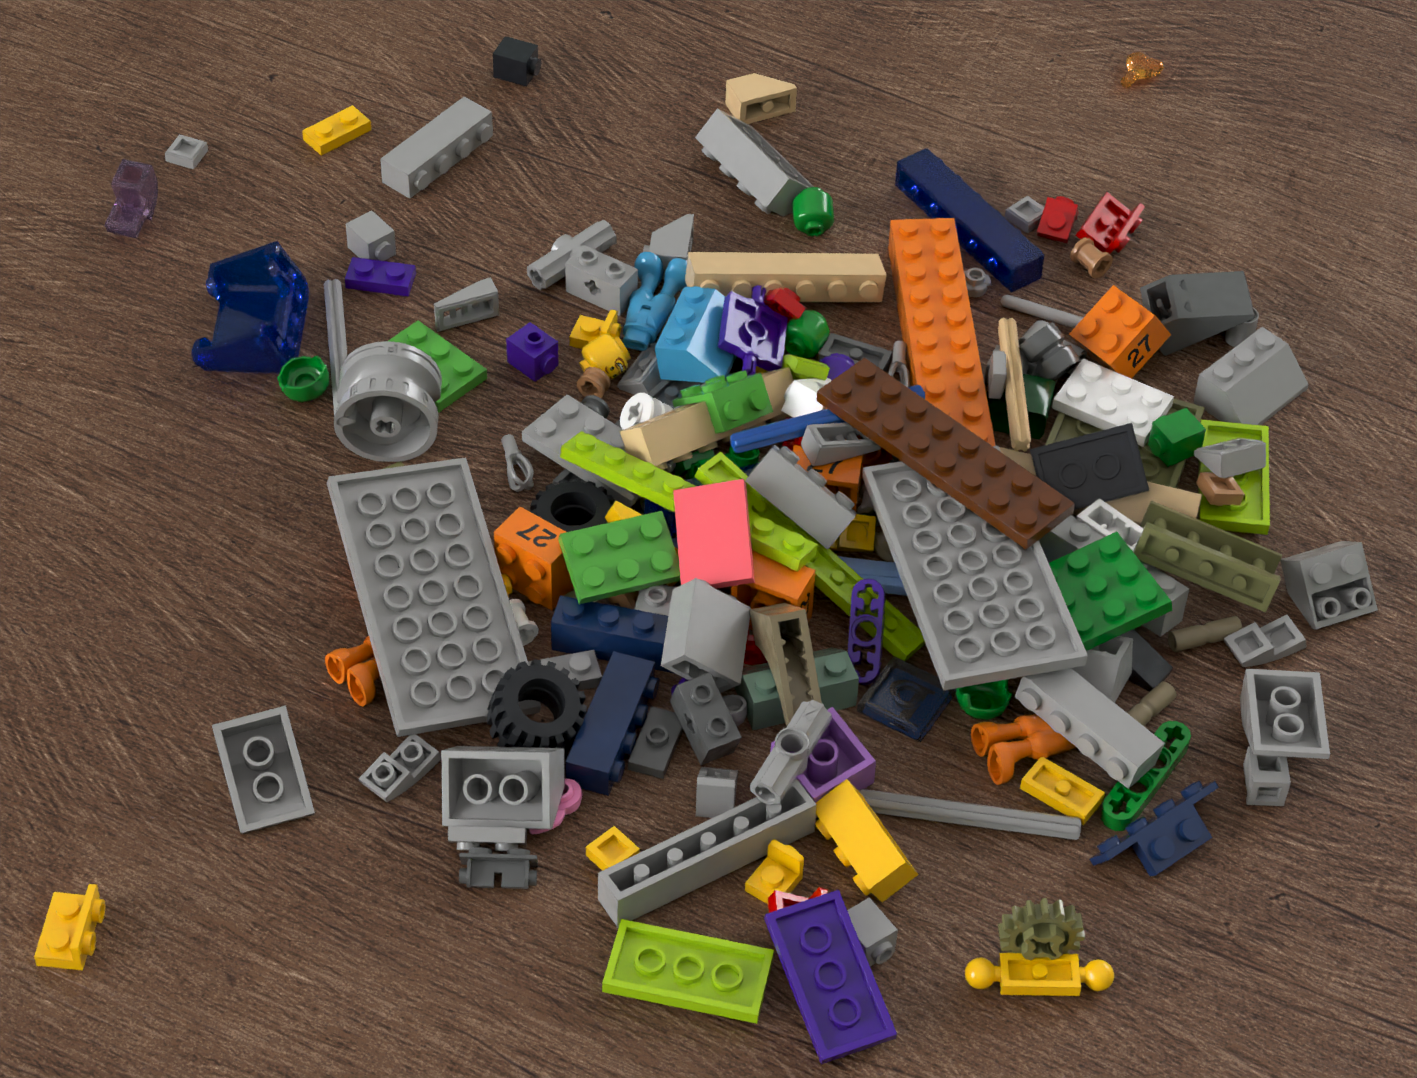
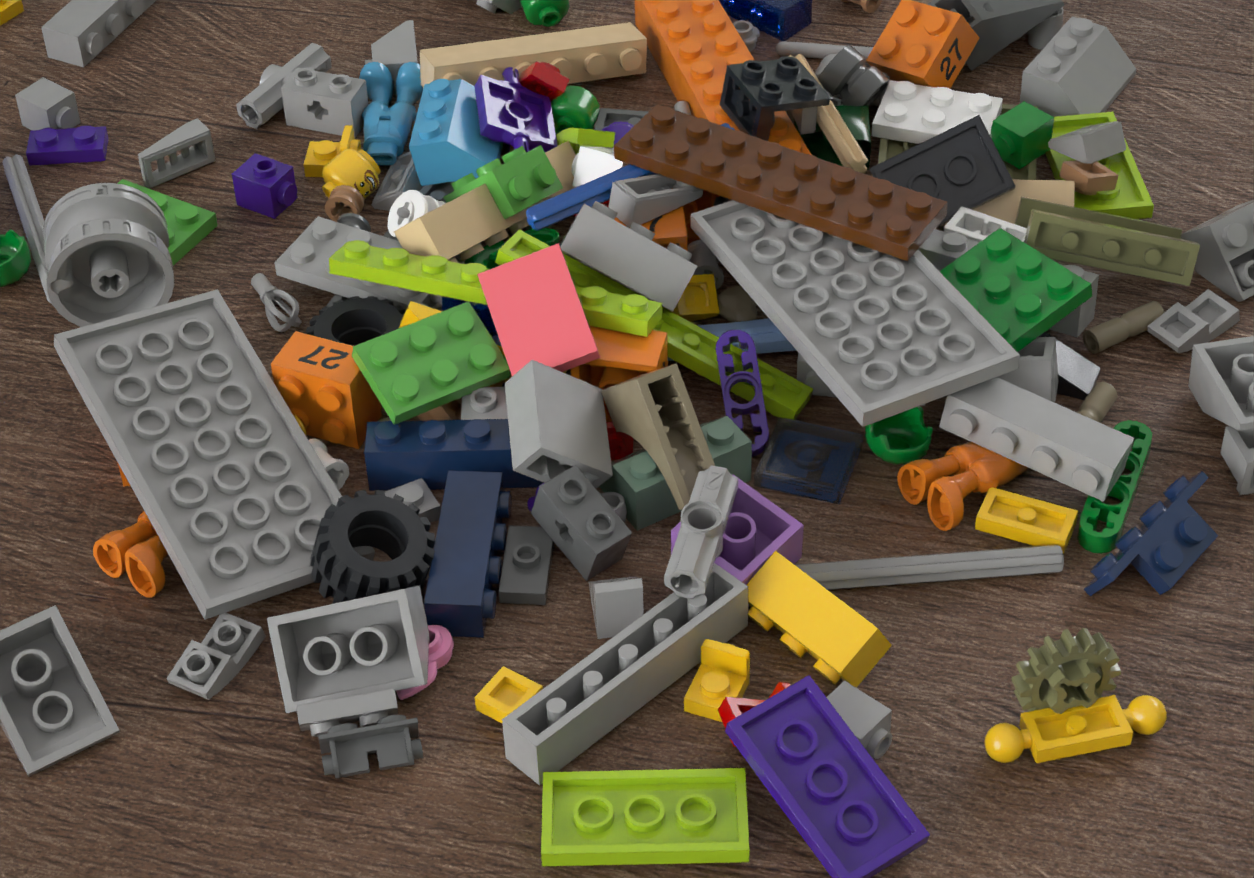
camera: 10 degrees left, 5 degrees down
(967, 356) = (760, 88): none -> black bracket

